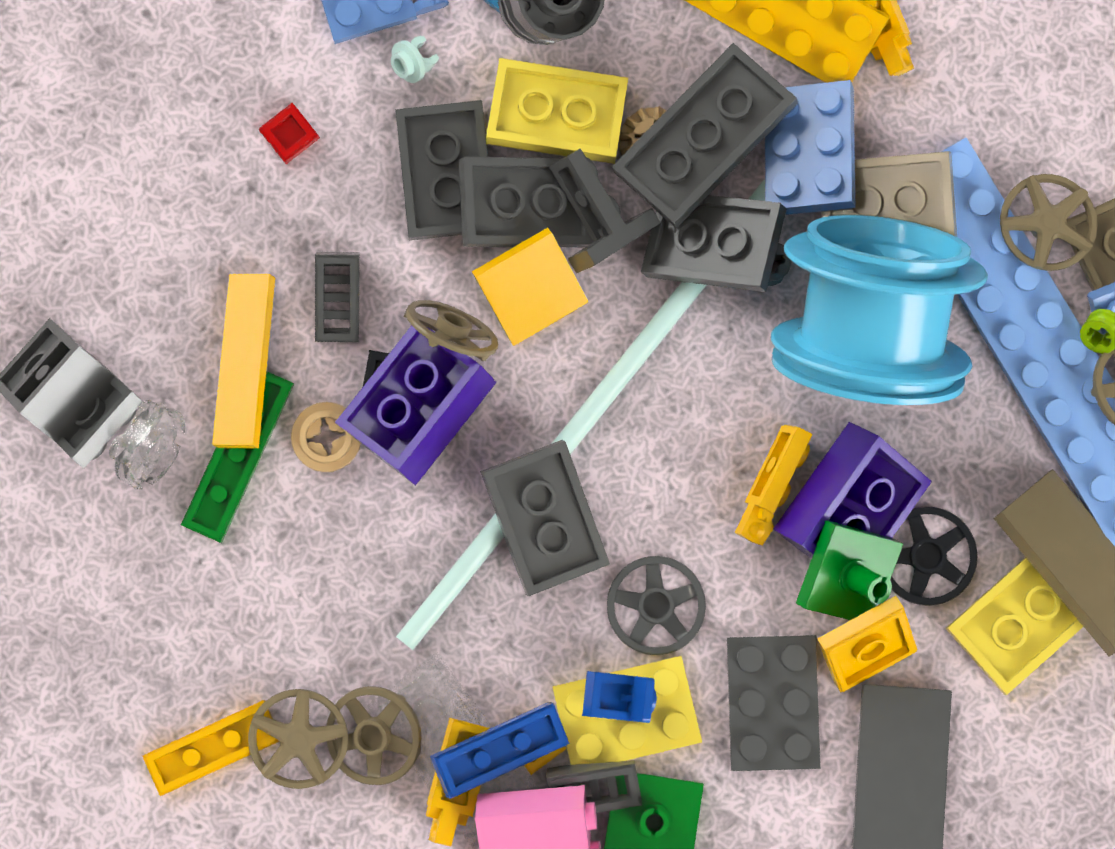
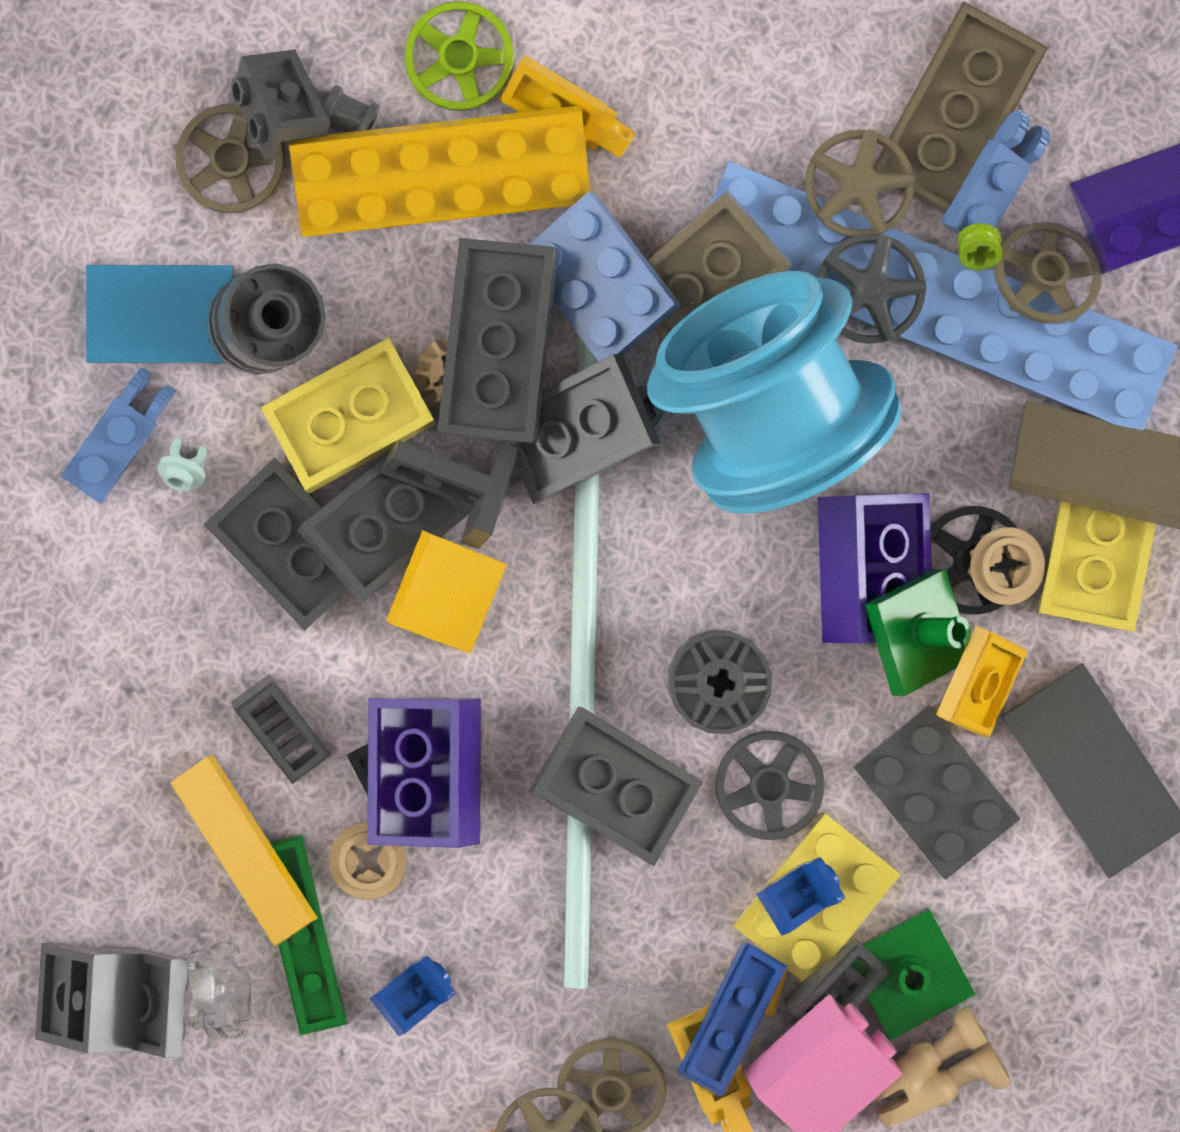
camera: 45 degrees left, 5 degrees up
(284, 557) = (413, 994): none -> blue bracket
(289, 133) = (124, 616): red tile -> none
(452, 326) = (406, 683): dark tan wheel -> none
(674, 523) = (704, 656): none -> dark grey wheel
(772, 483) = (791, 602): yellow hinge -> none
(968, 568) = (1022, 580): none -> tan gear
(1003, 302) = (873, 288): none -> dark grey wheel

